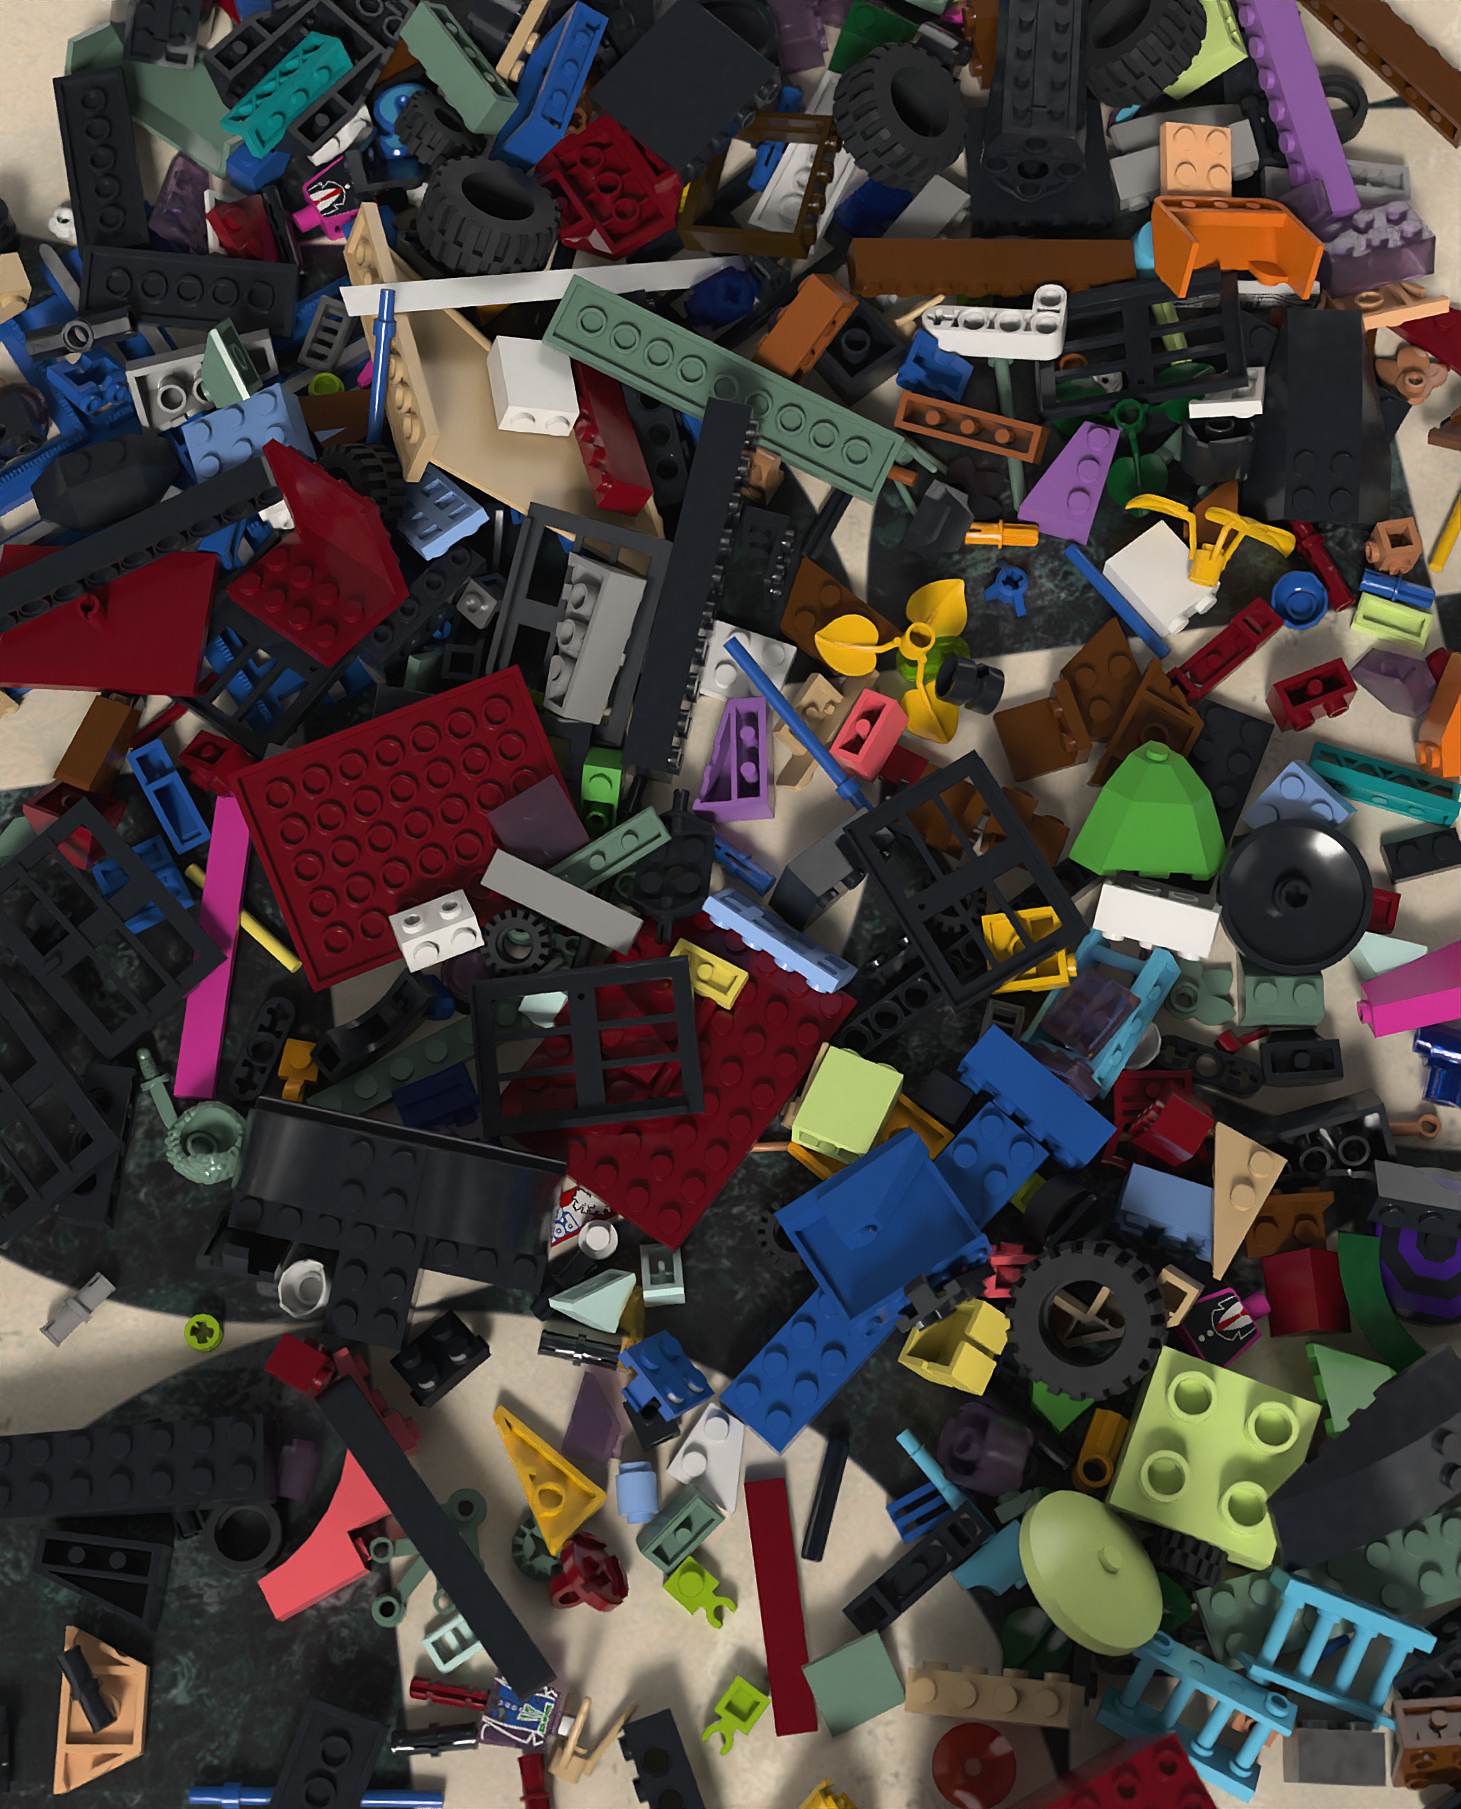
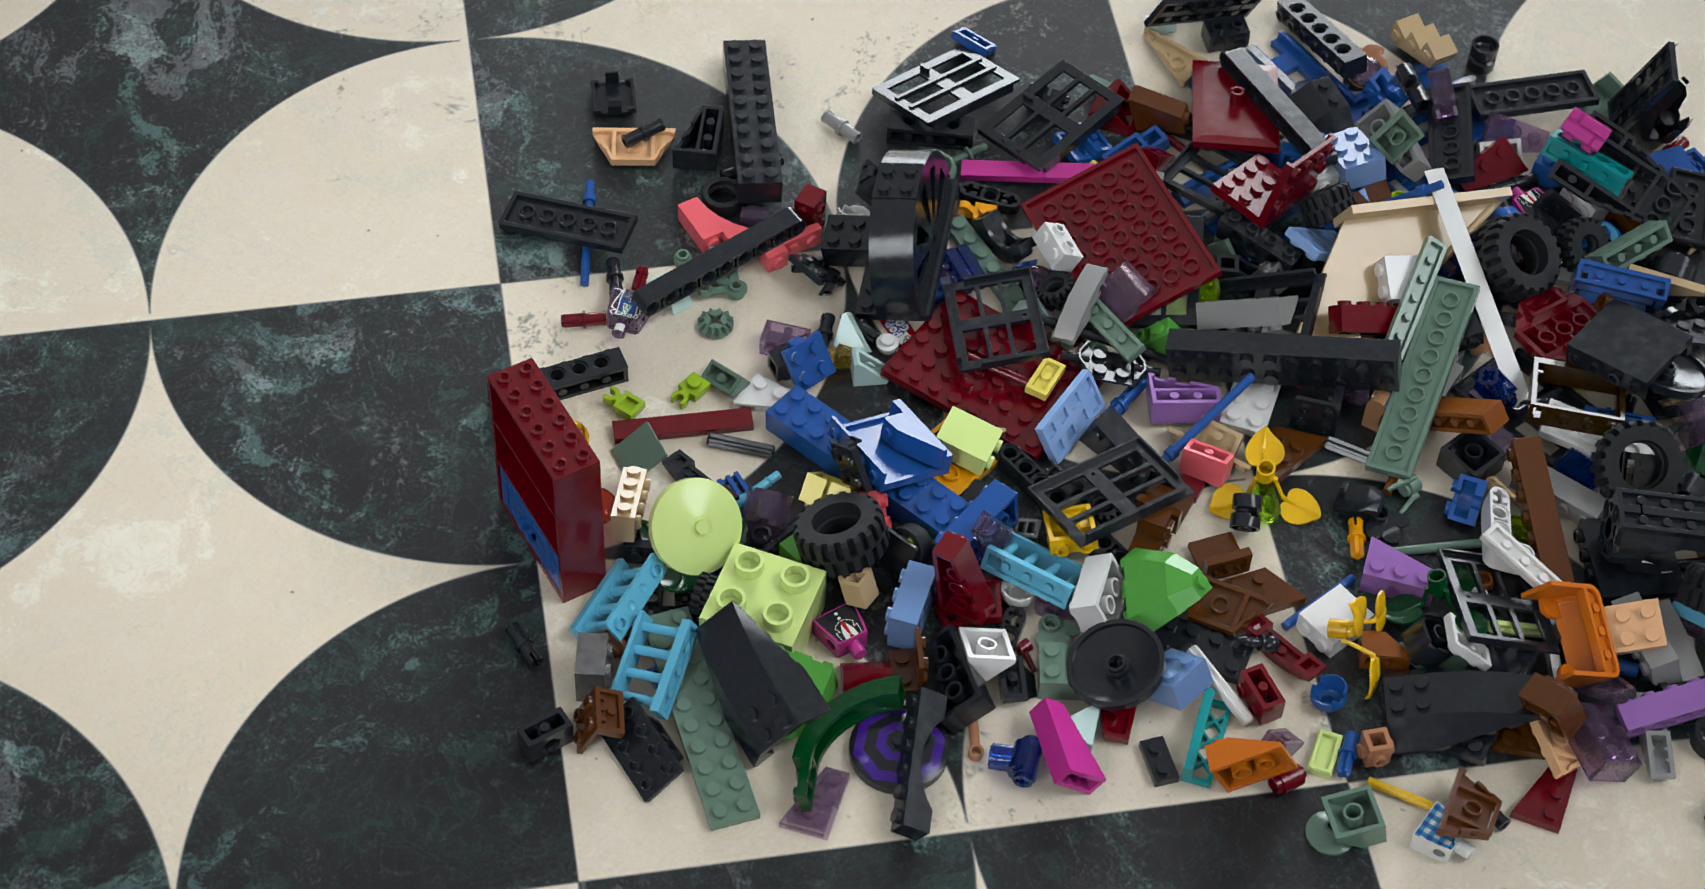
camera: 85 degrees right, 20 degrees down
(124, 283) = (1442, 93): none -> clear purple slope
(195, 1342) = (830, 184): lime bush -> none
(248, 75) = (1585, 130): none -> dark pink brick
(554, 1488) = (746, 323): yellow wing -> none
(569, 1756) = (602, 332): tan plant -> none
(583, 376) = (1416, 292): none -> plate
(588, 1575) = (700, 334): dark red tile -> none
(637, 1492) = (744, 359): light blue brick -> none
(971, 427) = (1424, 515): dark orange brick -> none
(1005, 589) = (1321, 545): blue piece -> none
(1078, 298) = (1517, 556): none -> white tile
(1089, 1013) = (1032, 553): clear purple slope -> none
(1209, 678) = (1268, 643): none -> black bar
(1242, 1181) = (924, 616): tan wing -> none
(1264, 1093) = (987, 650): none -> white slope
(1301, 749) = (1225, 691): none -> white axle
(1312, 547) = (1372, 706): dark red pin -> none
(1364, 284) = (1555, 704): none -> reddish brown brick
(1411, 374) = (1512, 774): nougat plate -> none

